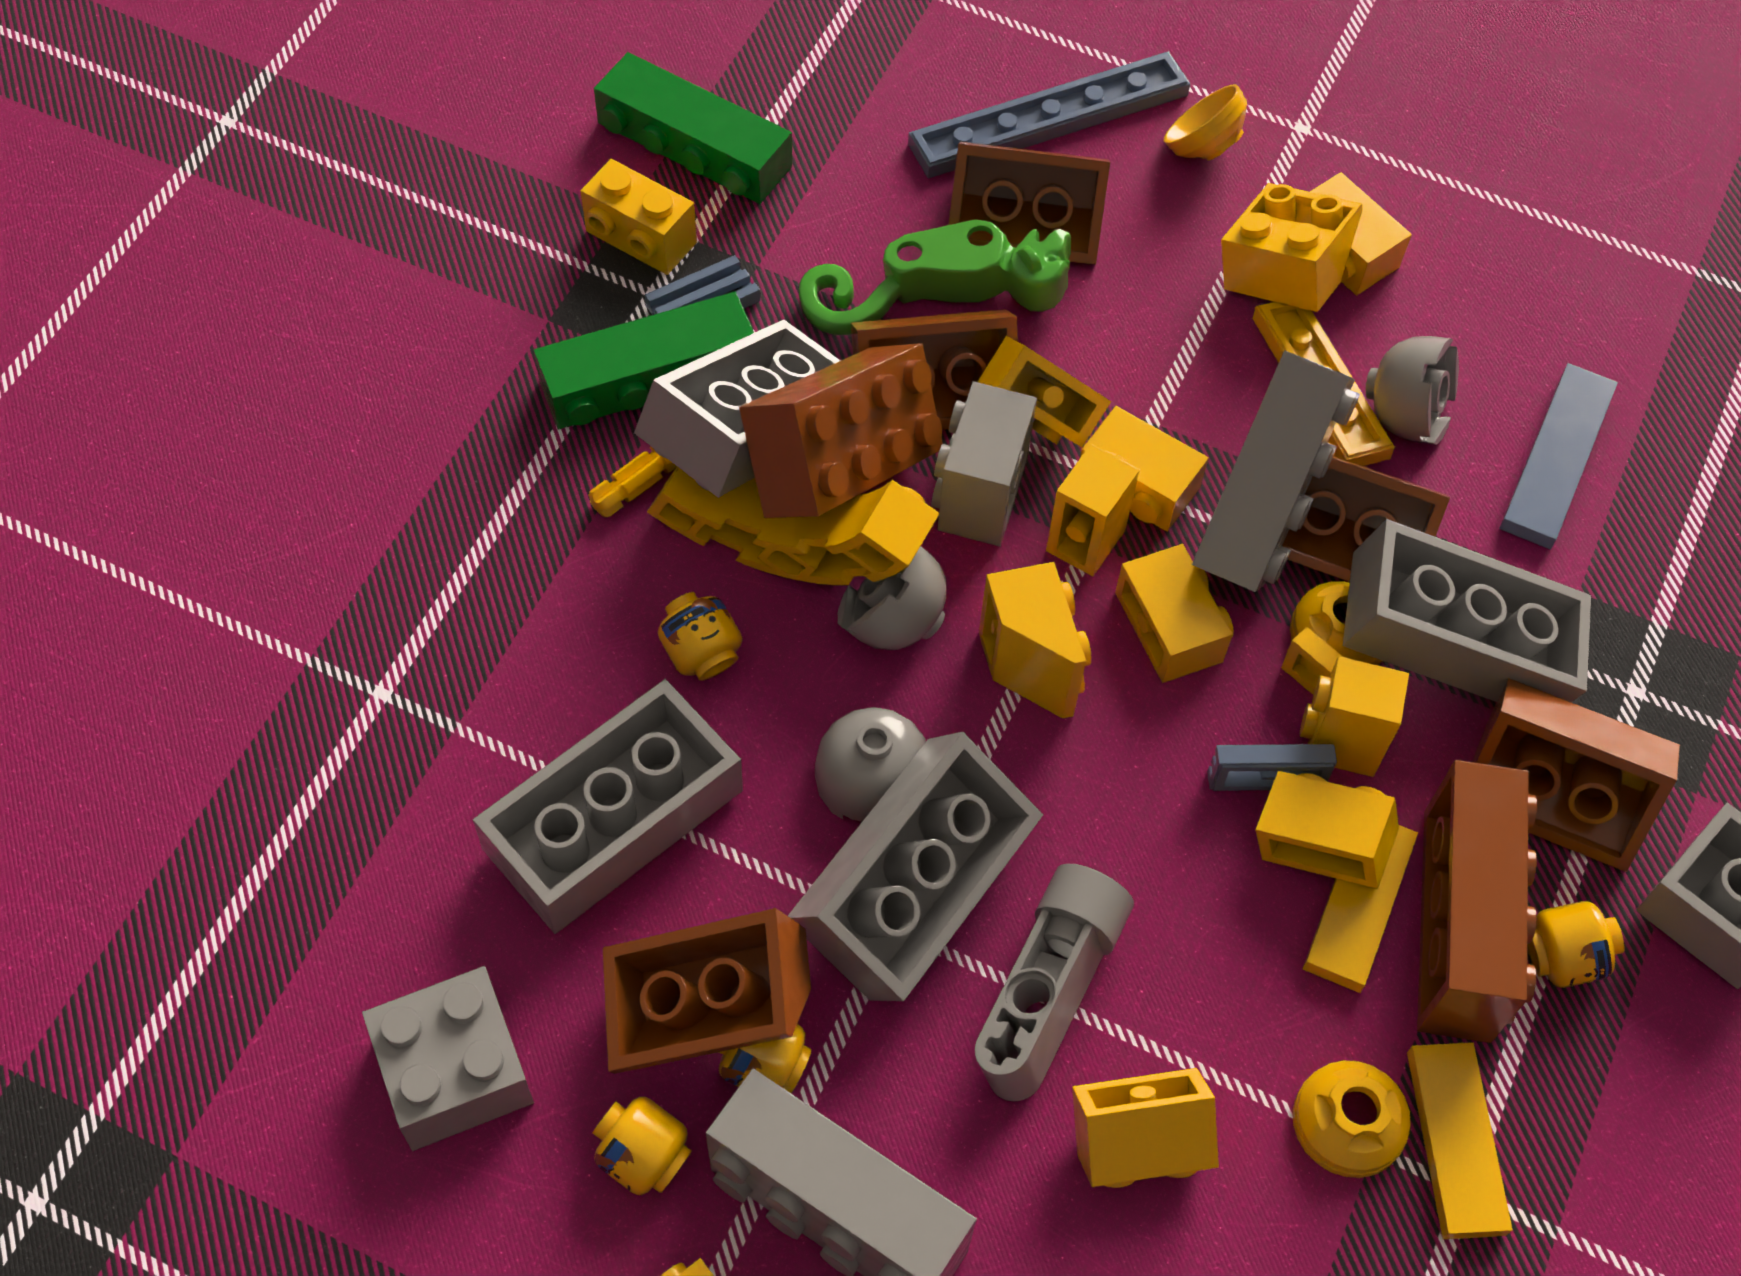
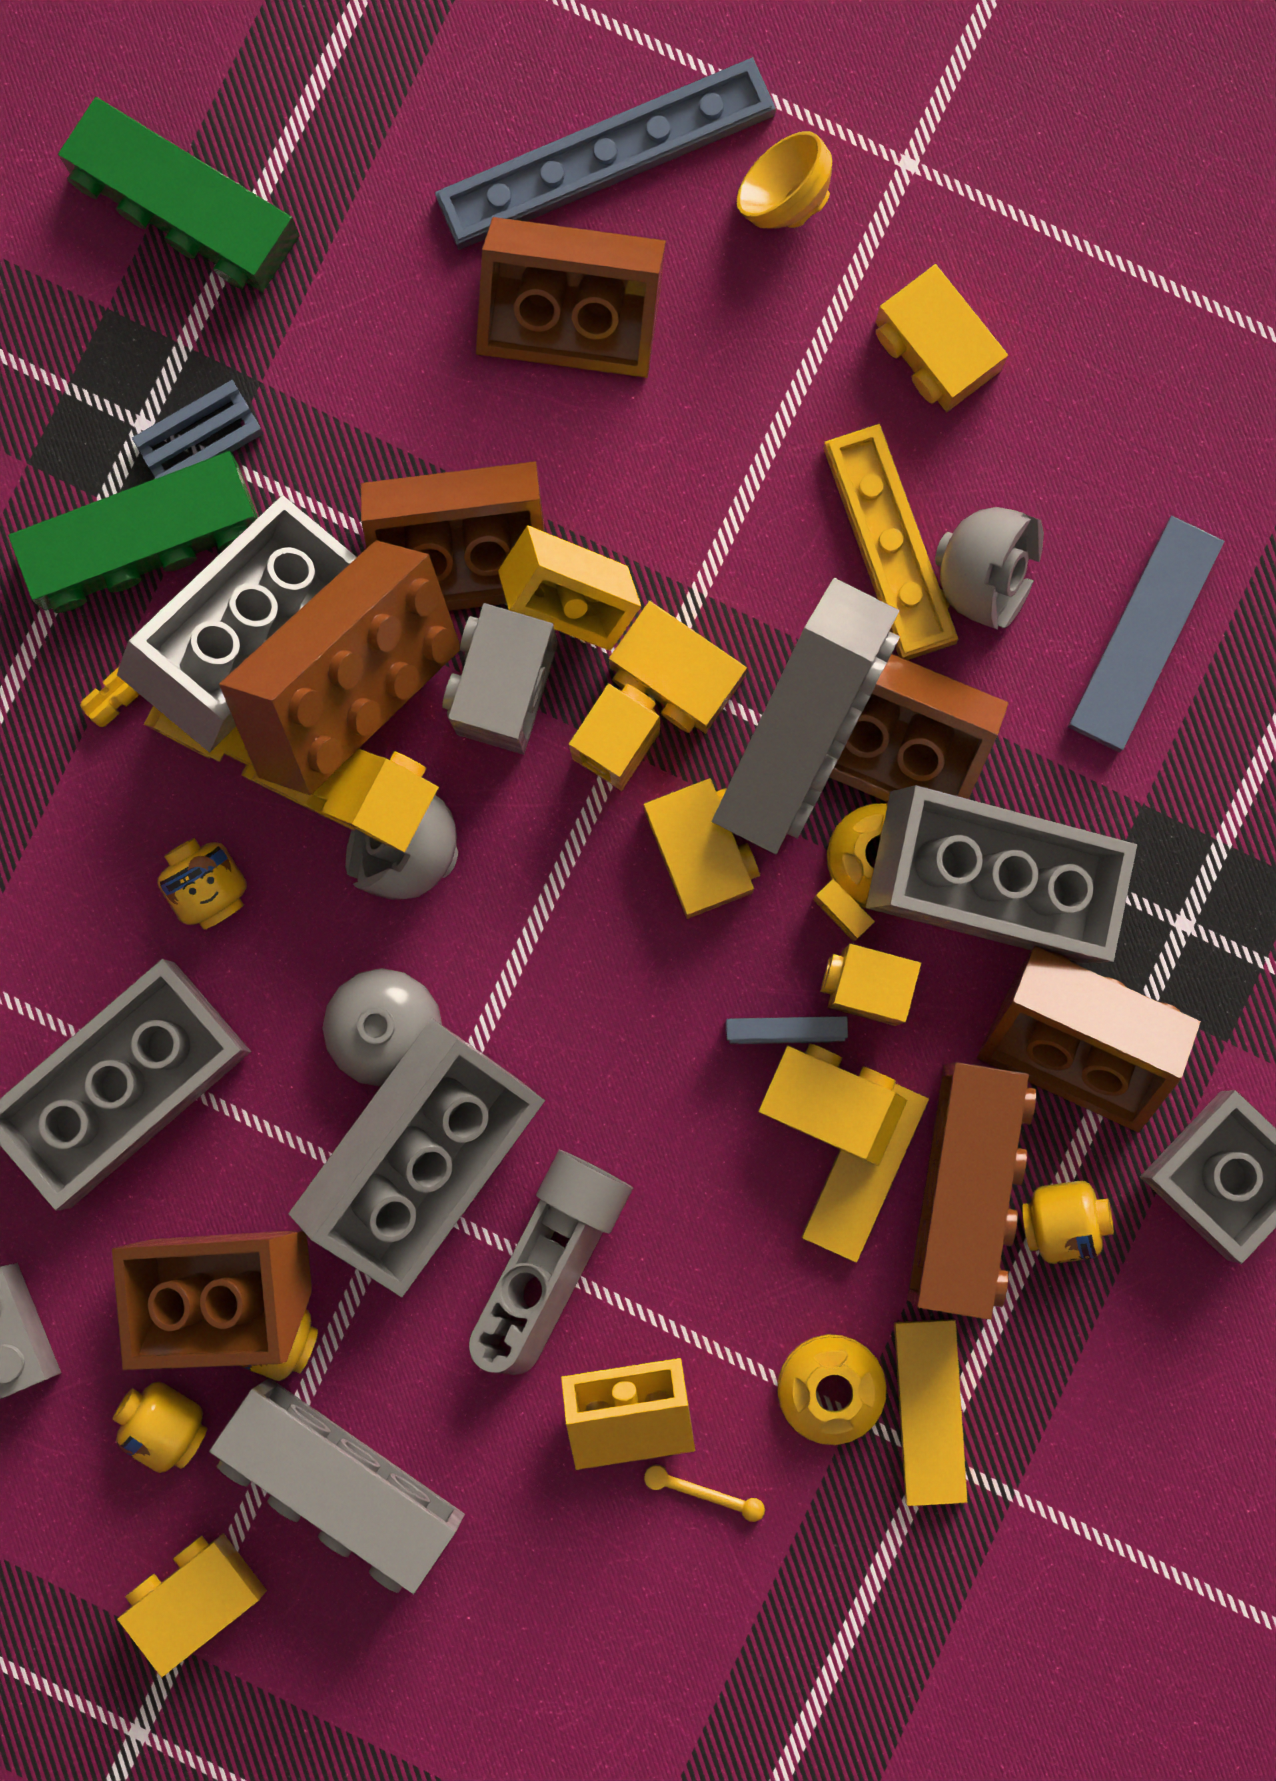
camera: 10 degrees right, 25 degrees up
(639, 216) = (119, 333): yellow brick -> none
(946, 271) = (469, 402): bright green animal -> none
(1033, 637) = (539, 892): yellow slope -> none
(1175, 1211) = (657, 1477): none -> yellow hinge
(1290, 246) = (866, 370): yellow slope -> none

